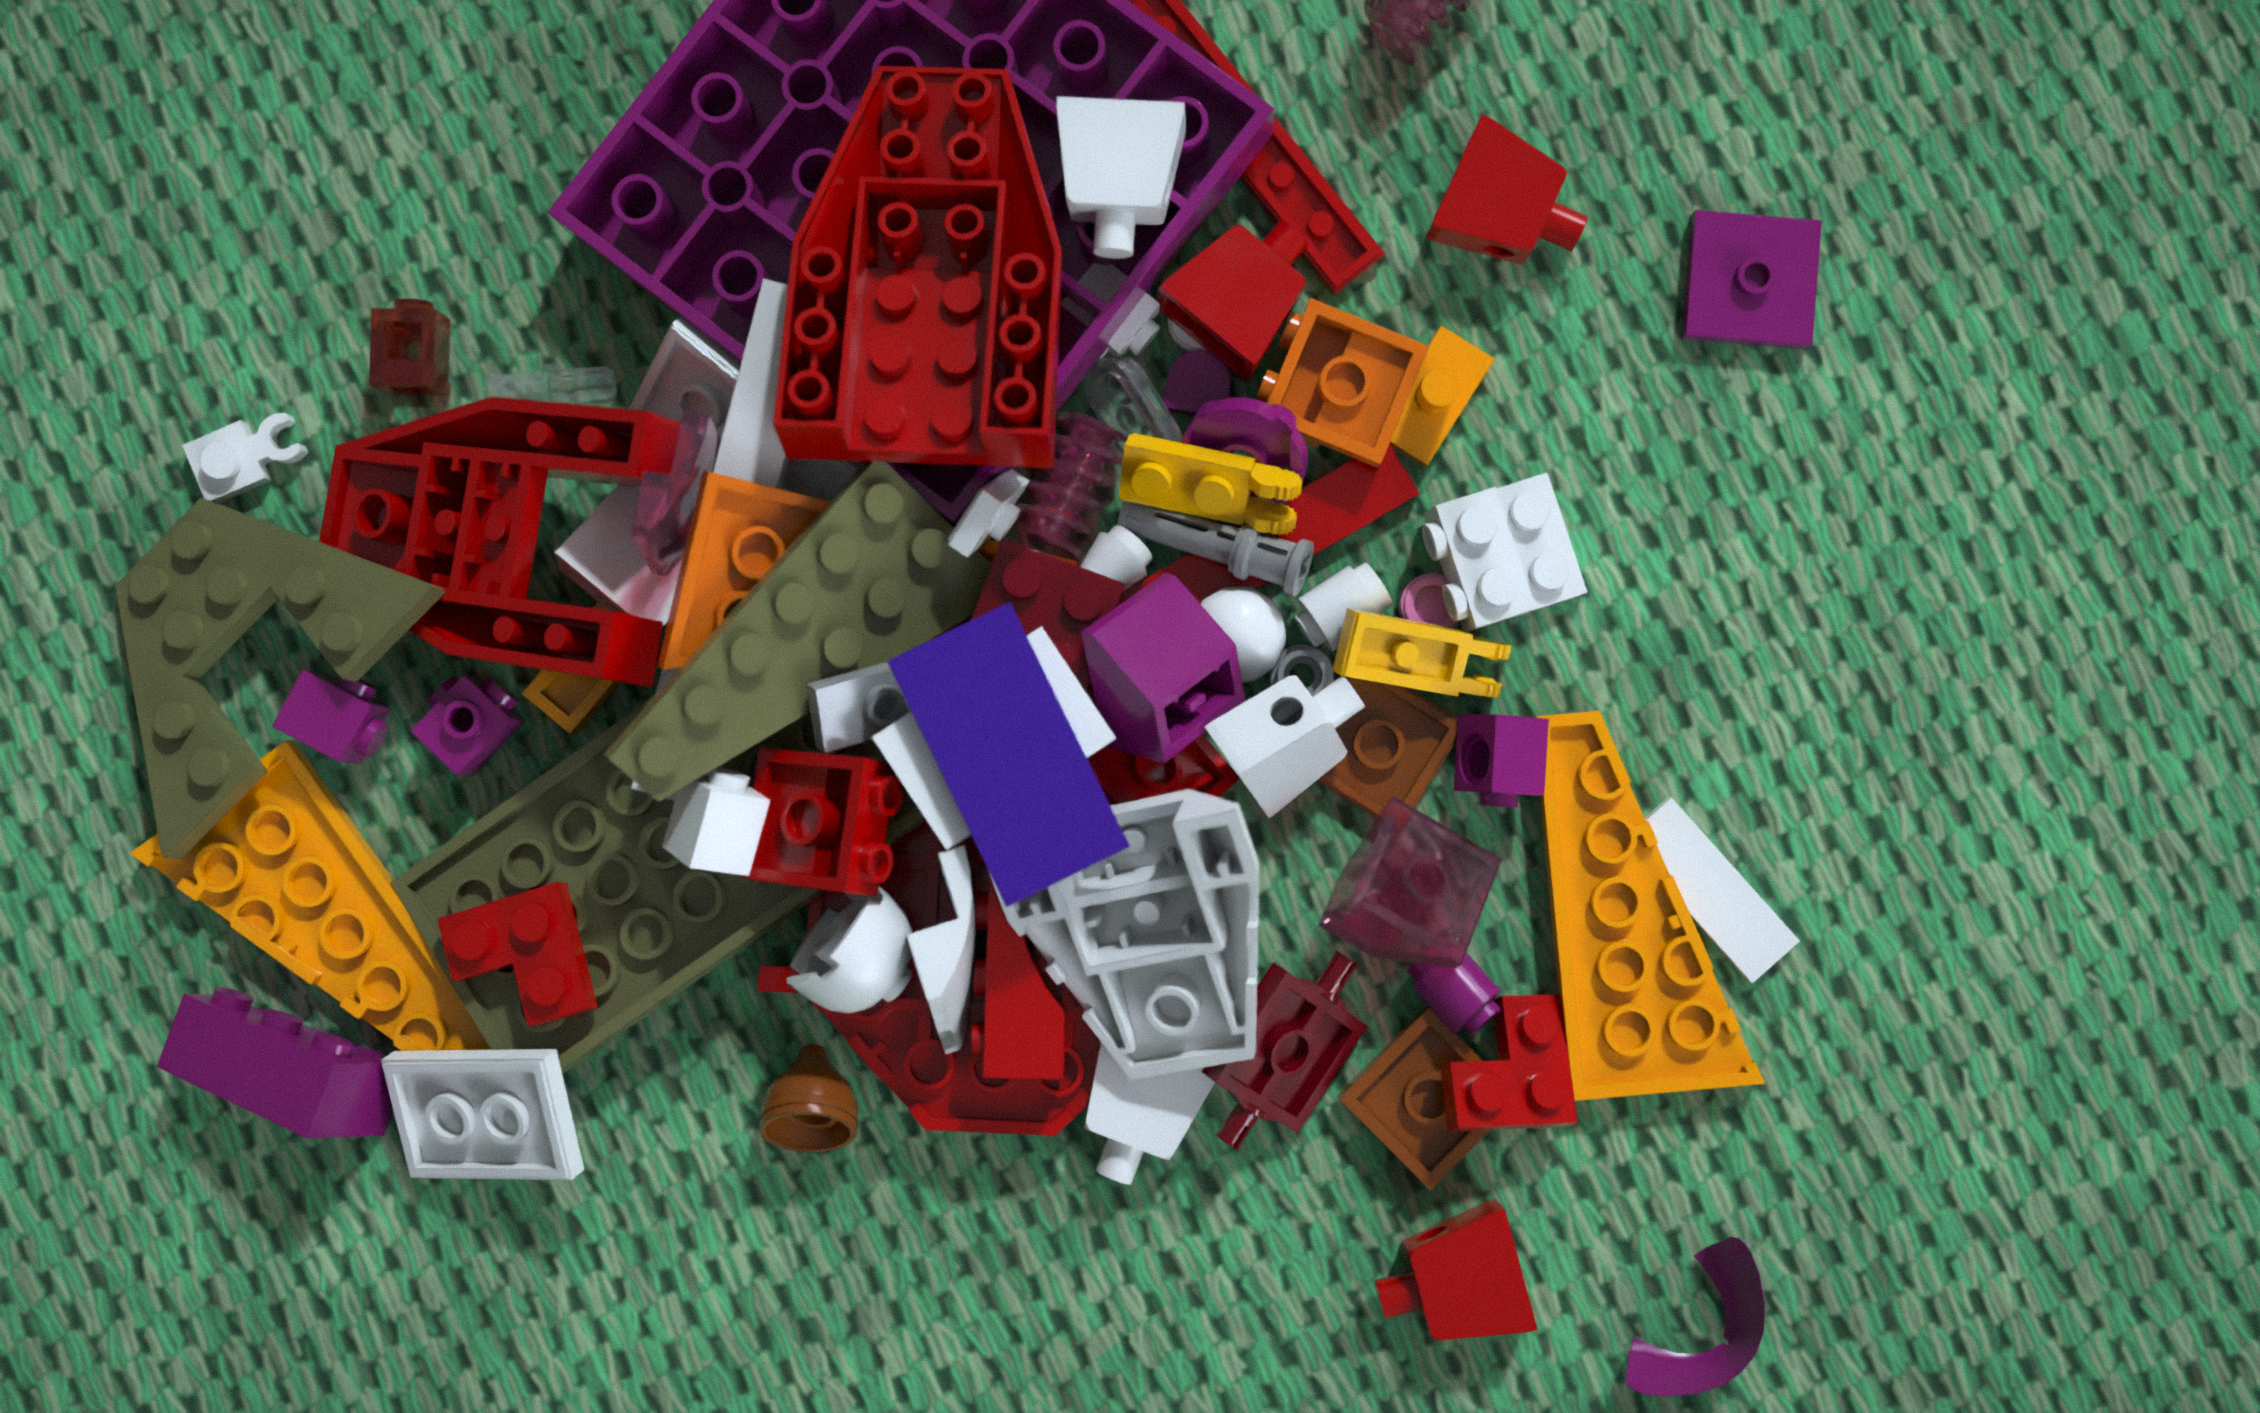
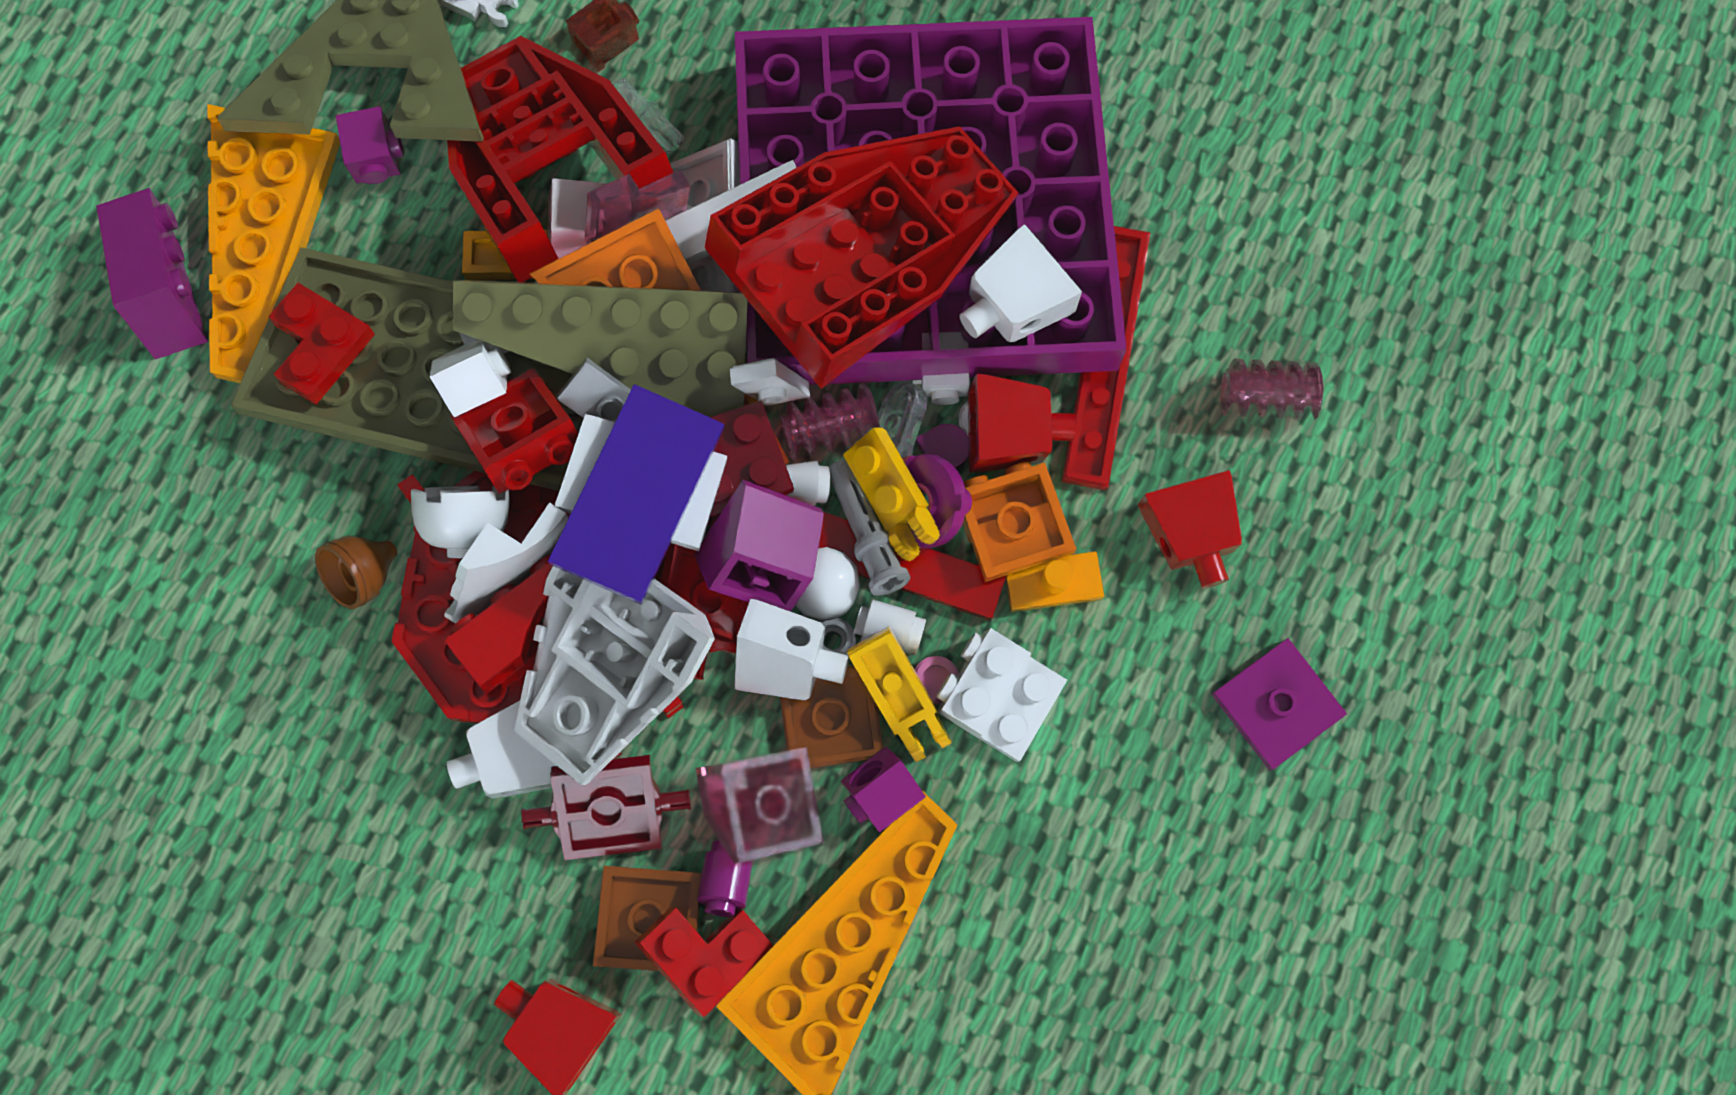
camera: 40 degrees right, 10 degrees down
(468, 722) = (424, 217): magenta brick -> none
(483, 1114) = (205, 394): white tile -> none
(1718, 895) = (911, 991): white tile -> none

